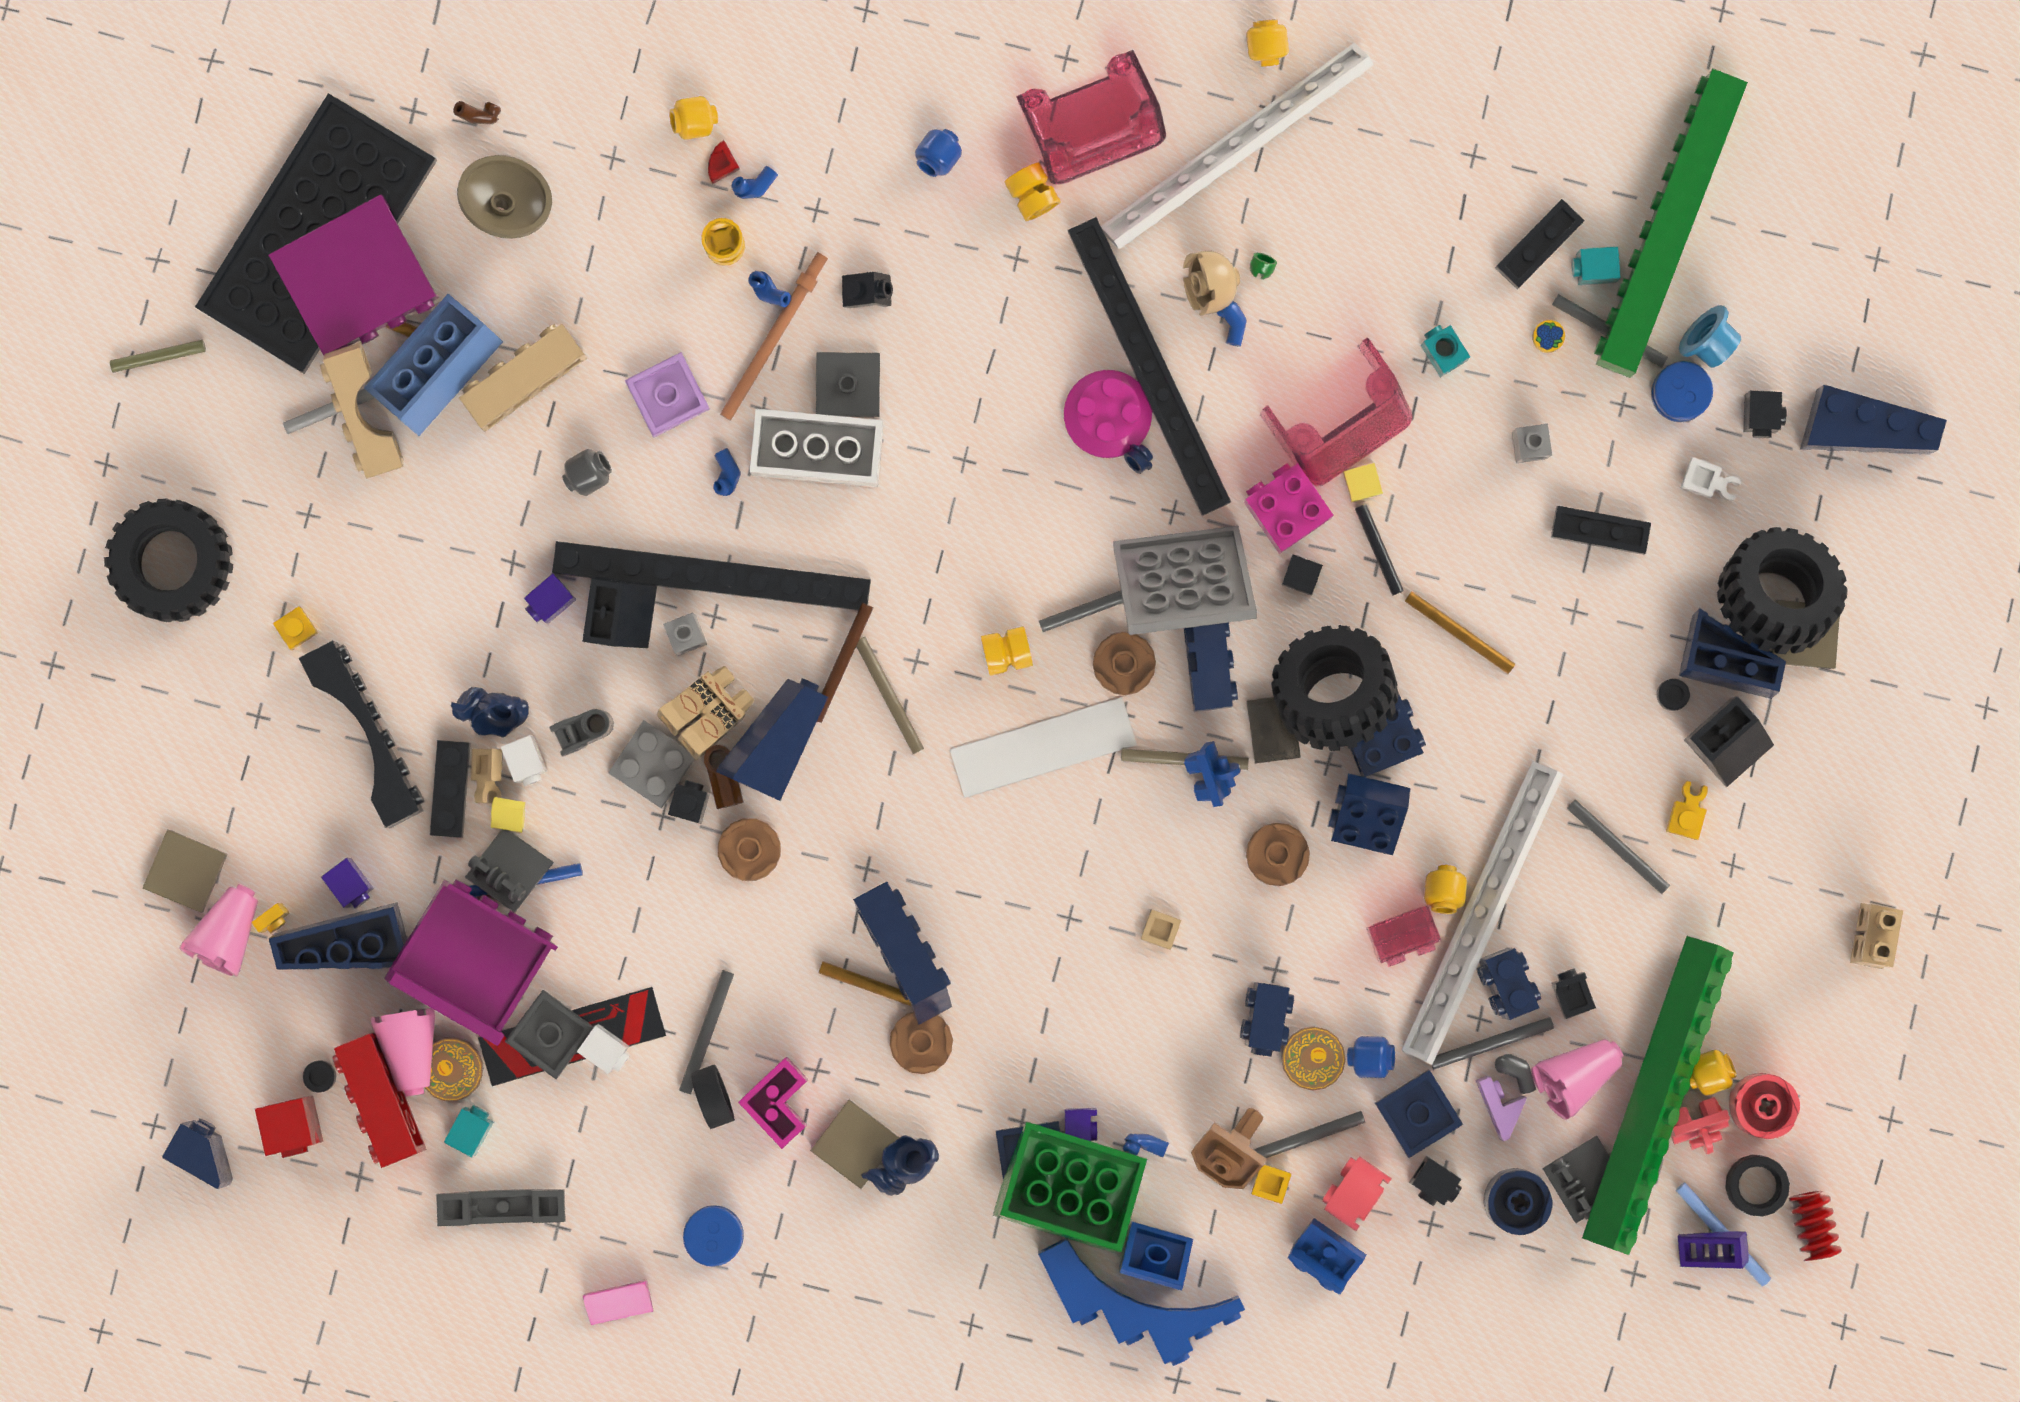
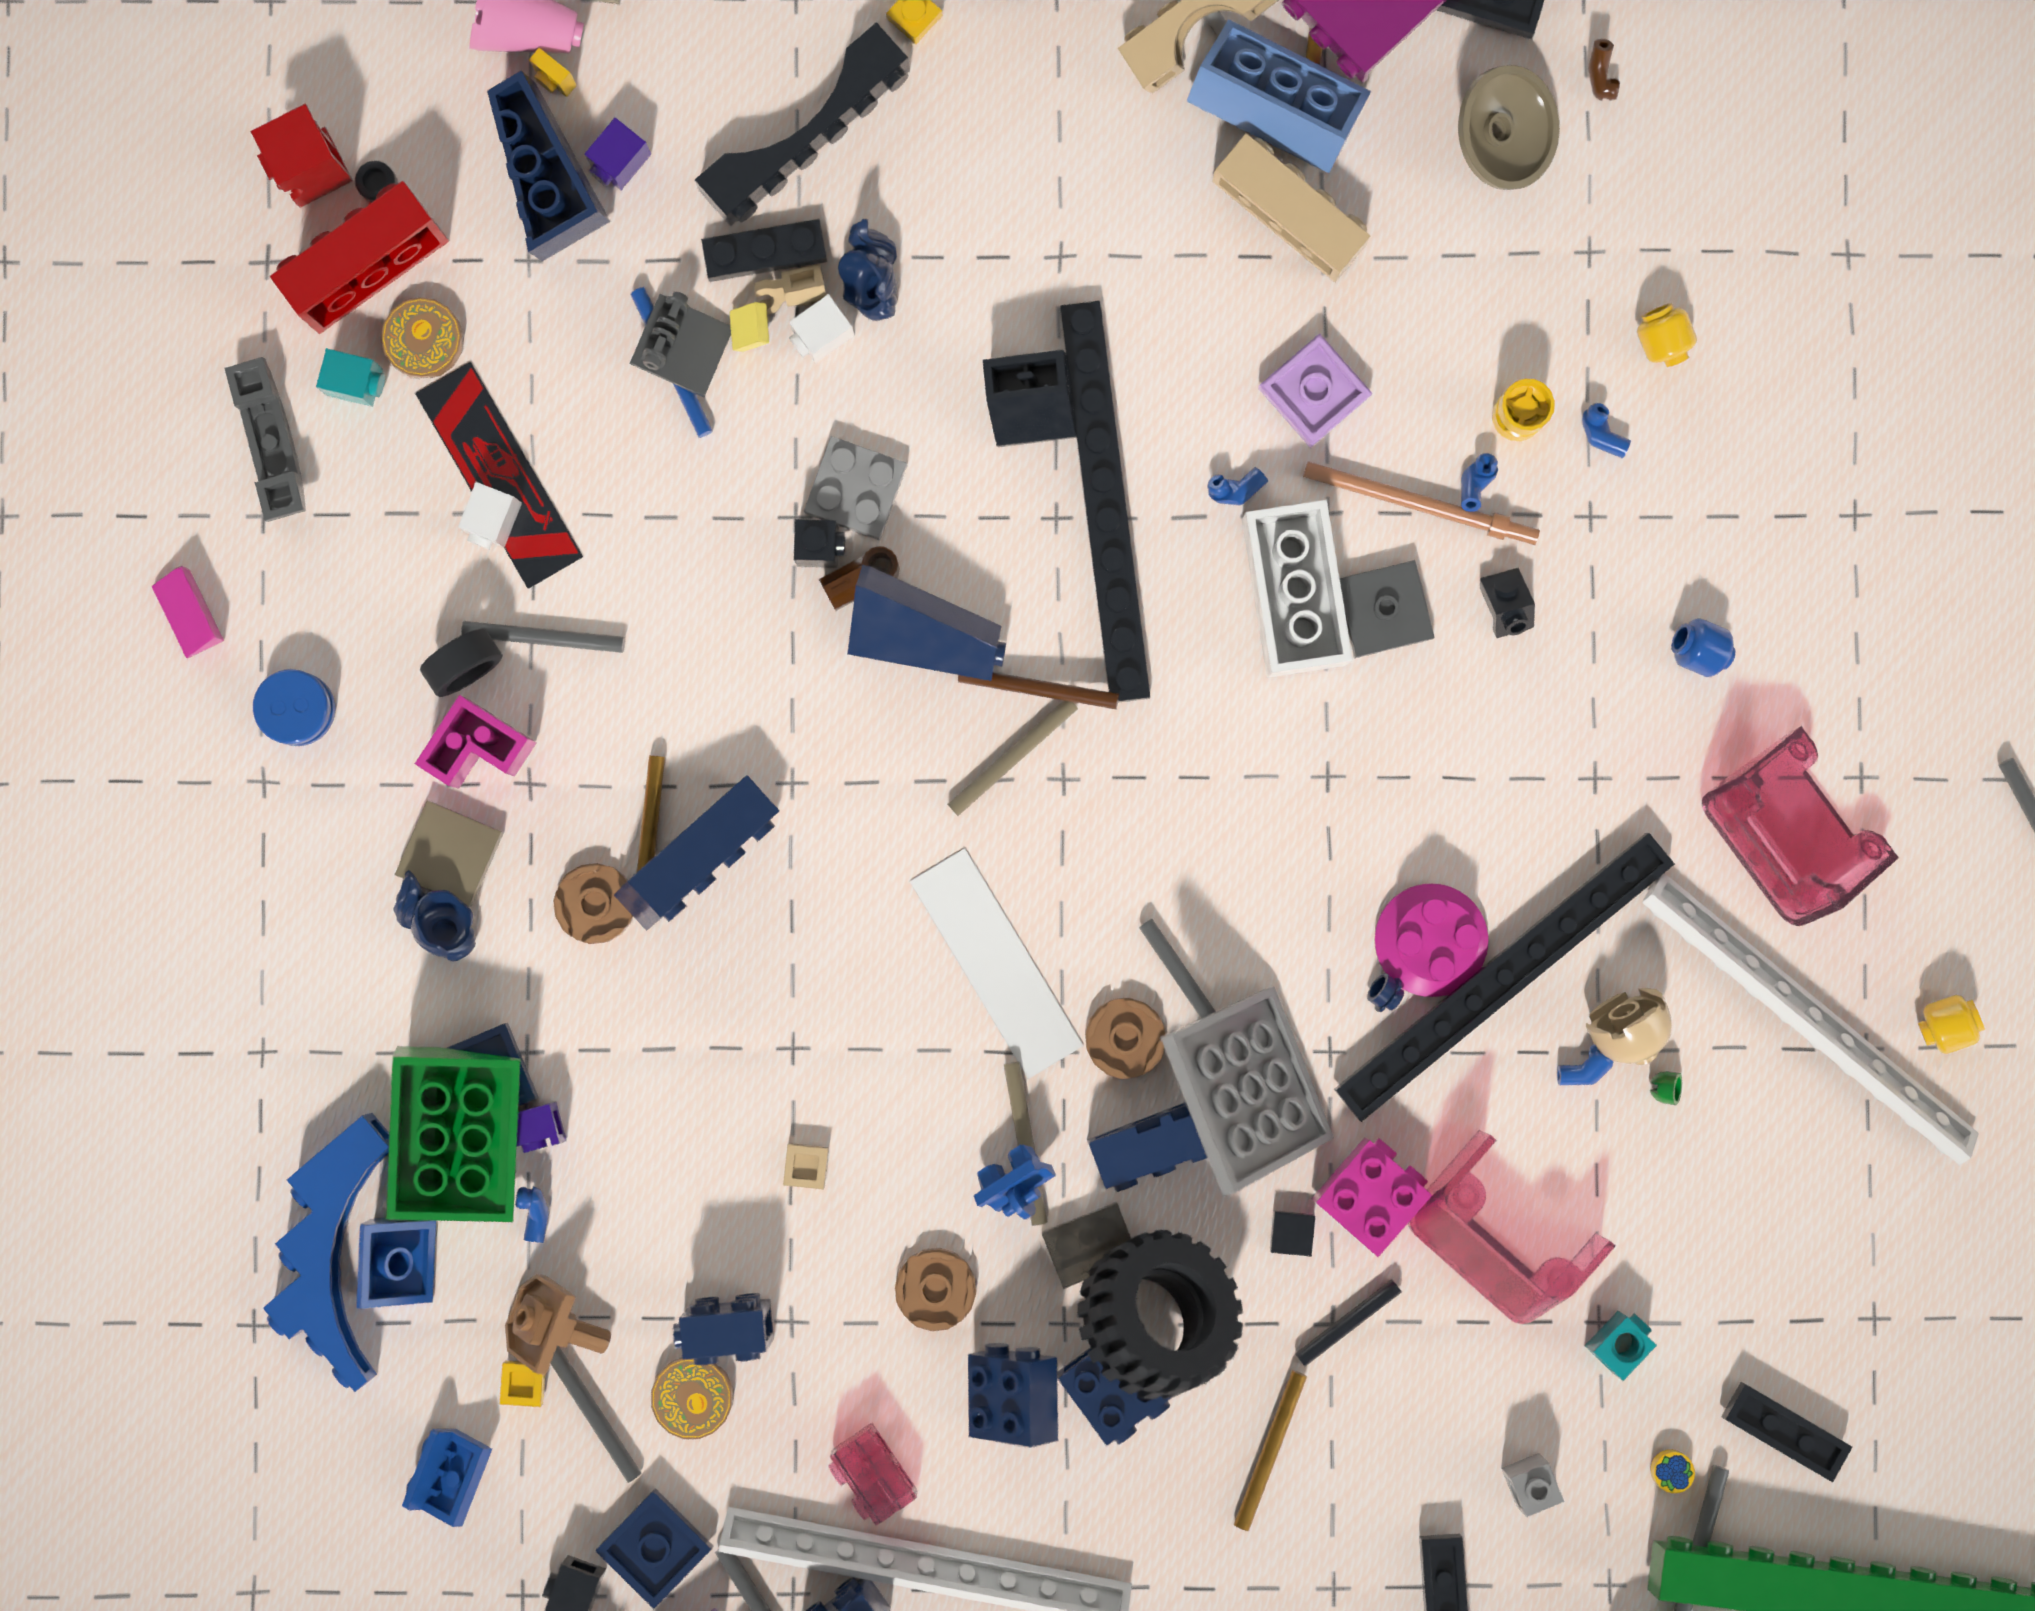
camera: 75 degrees right, 0 degrees up
(200, 1153) = (241, 58): dark blue slope -> none
(407, 1047) = (432, 274): bright pink cone -> none
(470, 960) = (555, 323): magenta panel -> none
(548, 600) = (1025, 309): dark purple brick -> none
(549, 1034) = (492, 445): dark grey plate -> none
(579, 731) = (872, 385): dark grey piece -> none
(586, 472) = (1194, 316): dark grey head -> none
(685, 634) = (1024, 486): light grey brick -> none
(714, 705) = (948, 538): tan hips -> none
(721, 163) = (1618, 385): red tile -> none
(749, 849) = (780, 632): medium nougat tile -> none
(1006, 651) = (1103, 887): yellow wheel -> none
(1031, 190) = (1690, 772): yellow wheel -> none
(1356, 1192) = (533, 1496): coral brick -> none
(1362, 482) = (1427, 1281): light yellow tile -> none
(1371, 1057) = (710, 1472): blue head -> none
(1445, 889) = (942, 1513): yellow head -> none
(1596, 266) = (1779, 1512): teal brick -> none

